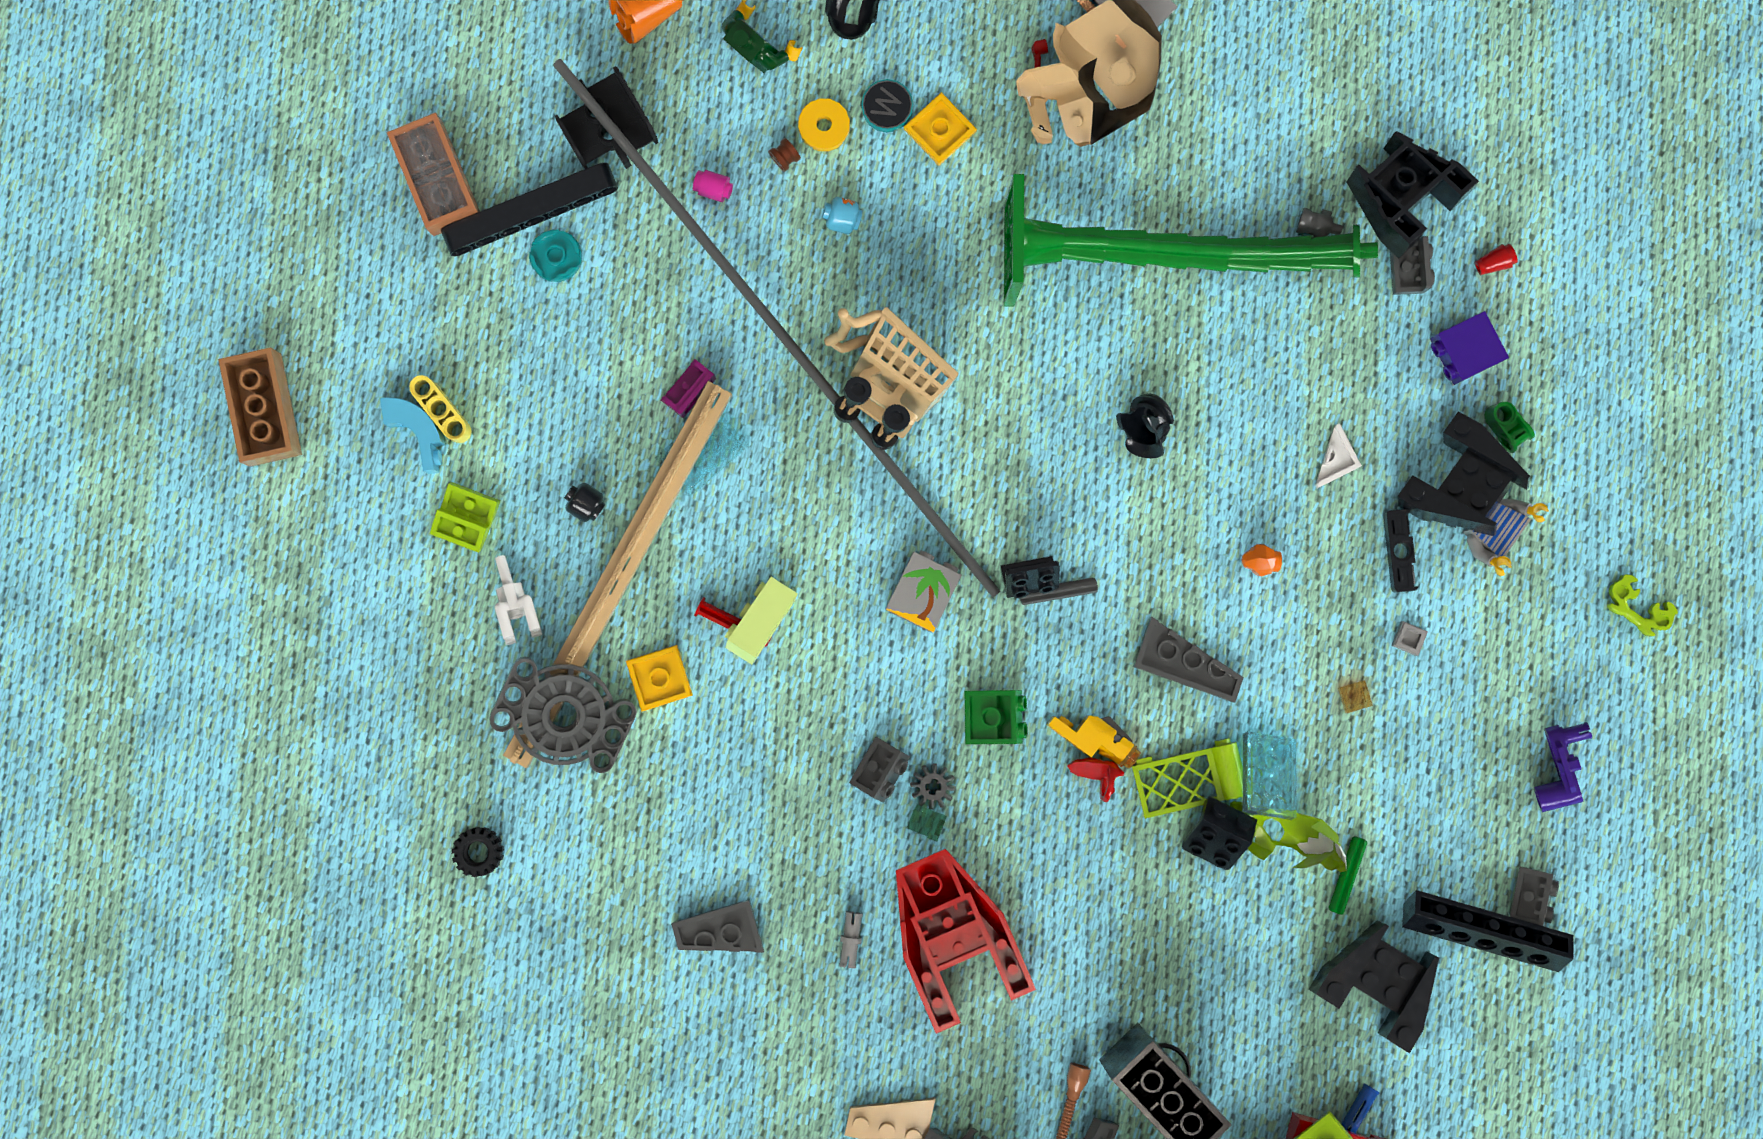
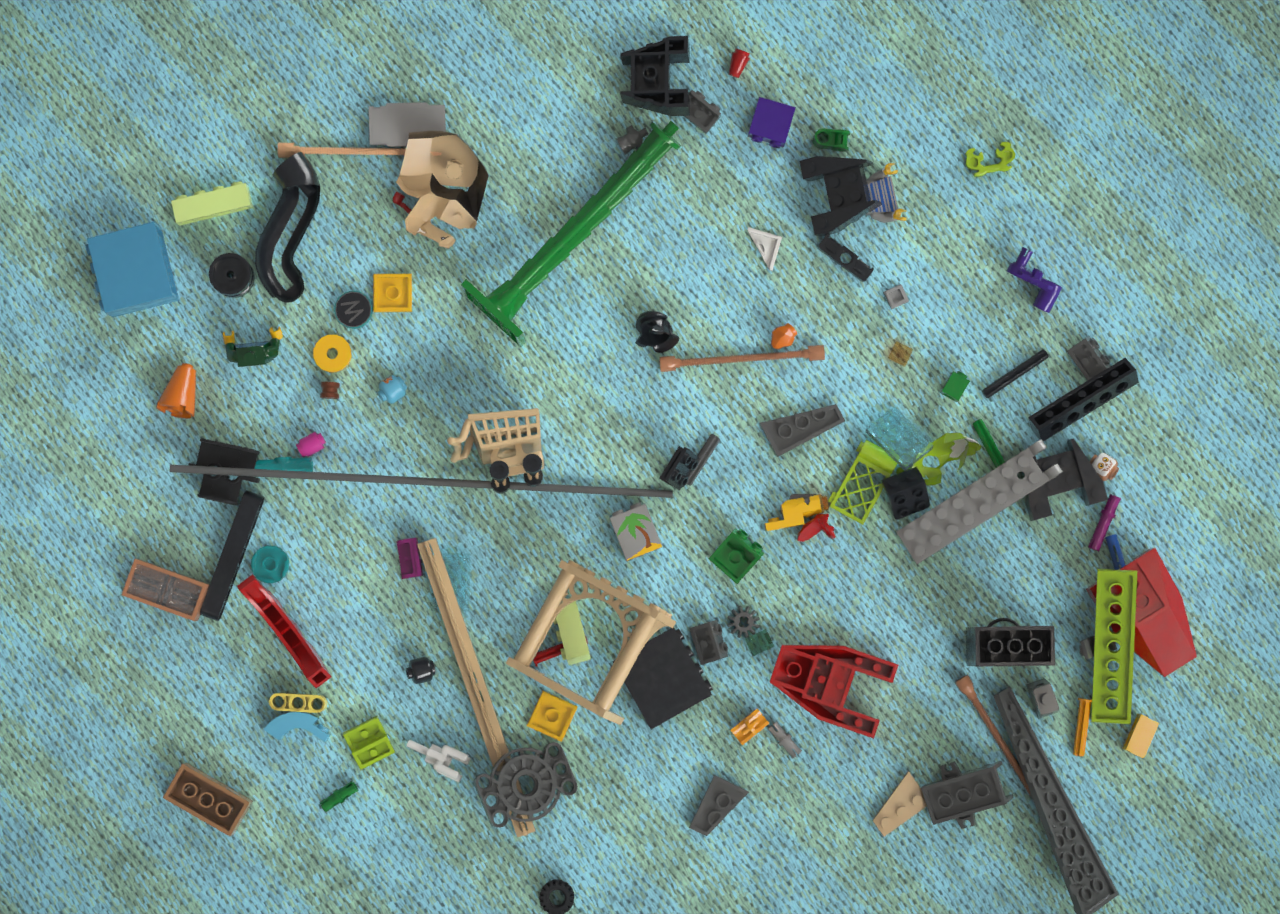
camera: 45 degrees left, 0 degrees up
(383, 536) = (339, 796): none -> green pin
(502, 327) = (286, 630): none -> red arch
(670, 178) = (286, 463): none -> teal piece
(799, 756) = (666, 679): none -> black brick
(831, 891) = (749, 726): none -> light orange hips
(839, 688) = (648, 622): none -> tan arch
(1272, 605) = (670, 363): none -> nougat hose
(1277, 917) = (976, 504): none -> light grey hinge
(1375, 783) = (955, 386): none -> green brick
(1389, 1065) = (1104, 522): none -> magenta pin
(1440, 1017) = (1105, 466): none -> head
(1446, 834) = (1015, 373): none -> black axle

